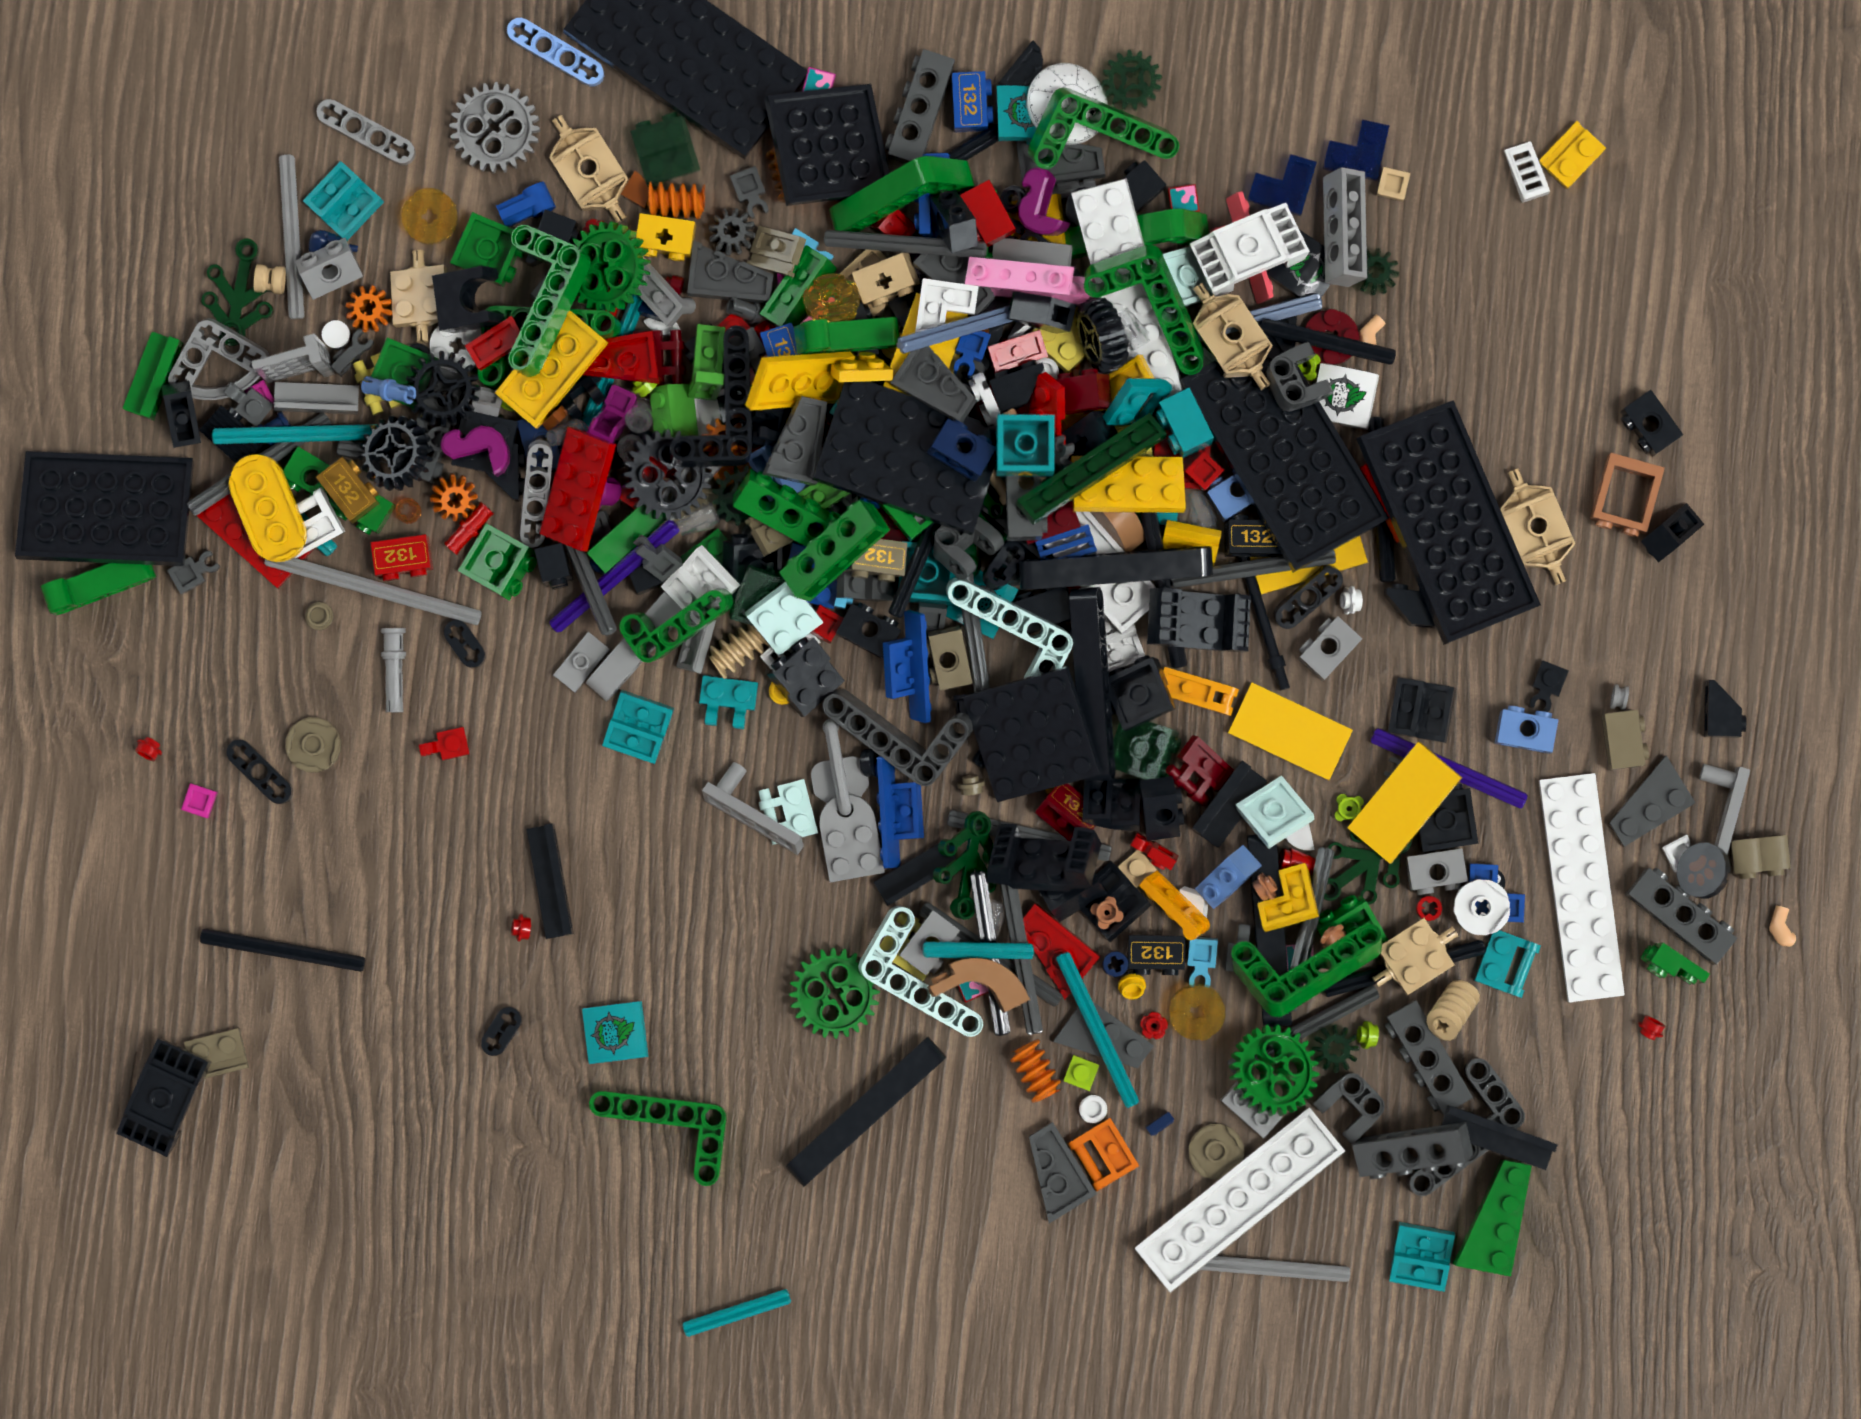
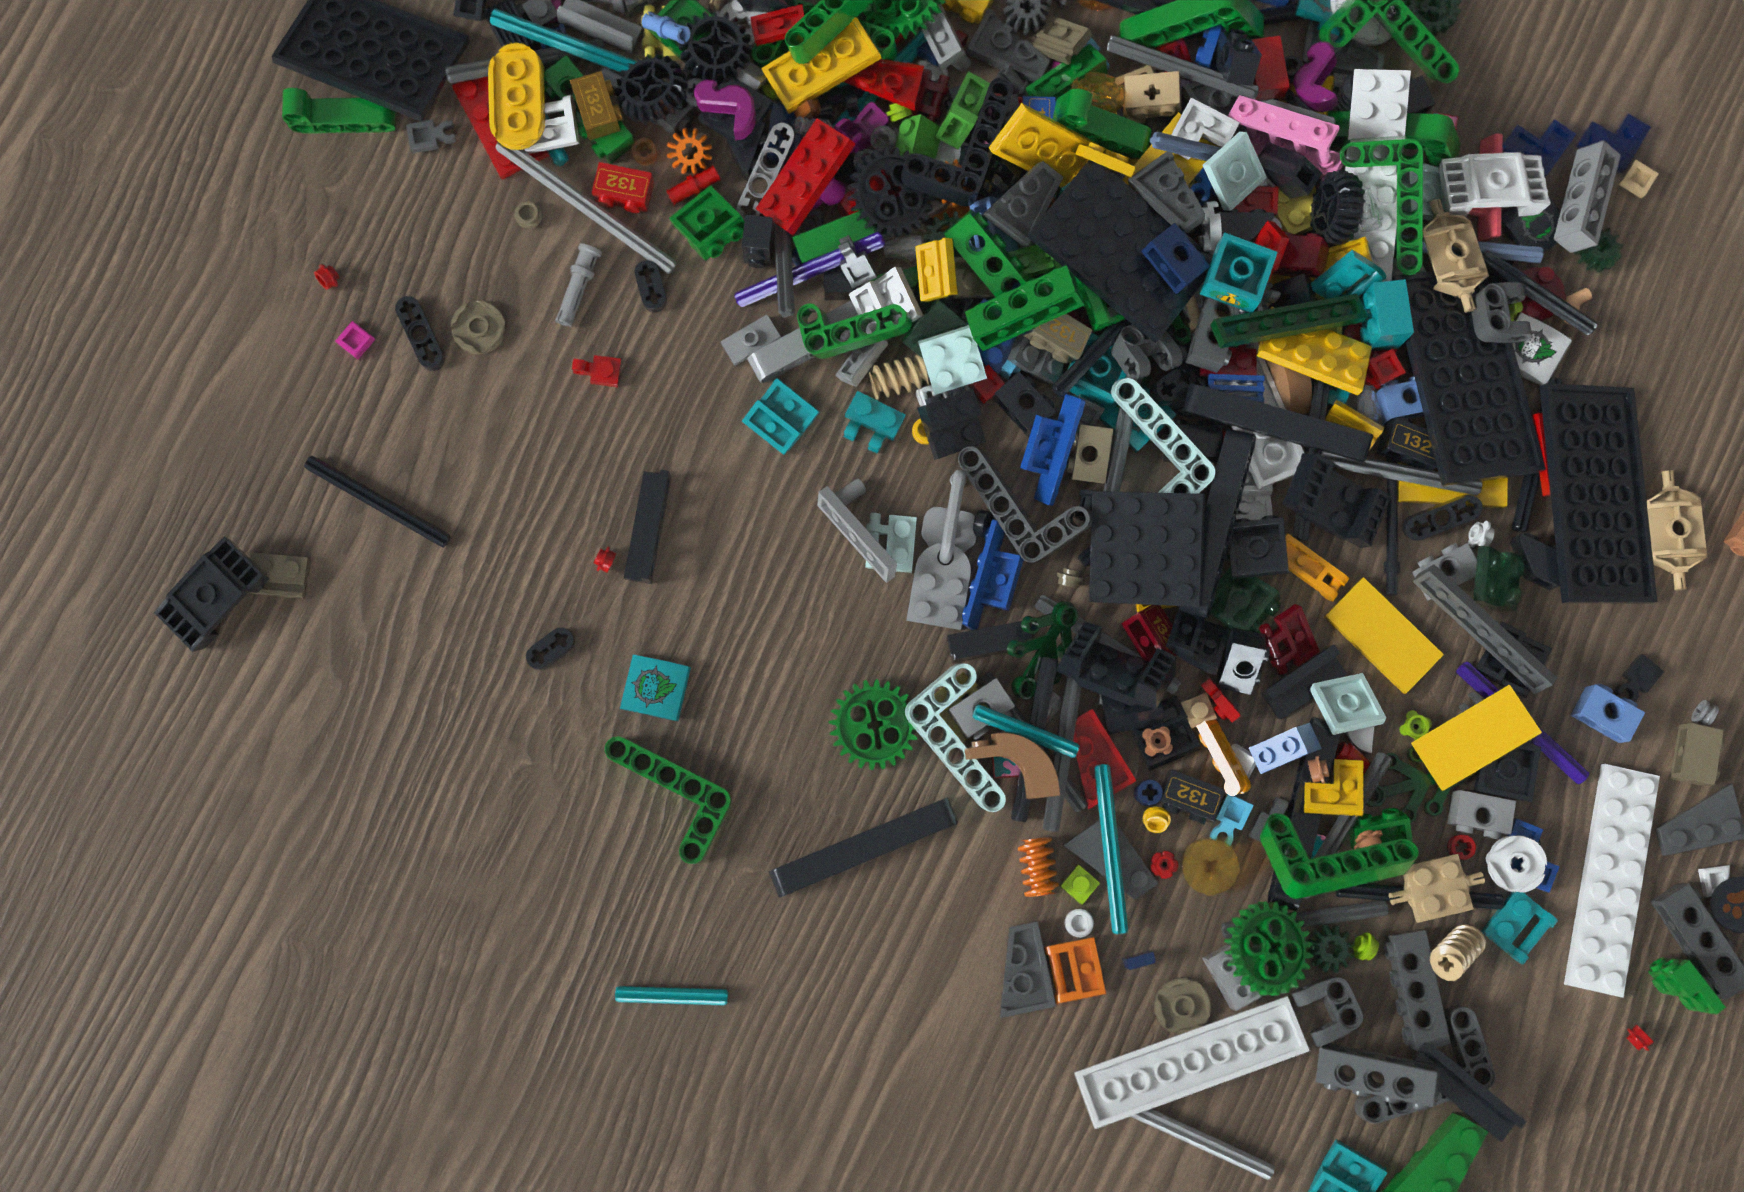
camera: 10 degrees right, 5 degrees down
(737, 541) = (936, 269): none -> yellow plate
(990, 337) = (1234, 171): none -> light aqua plate
(1378, 640) = (1498, 579): none -> clear green plate
(1380, 696) = (1484, 629): none -> dark grey plate

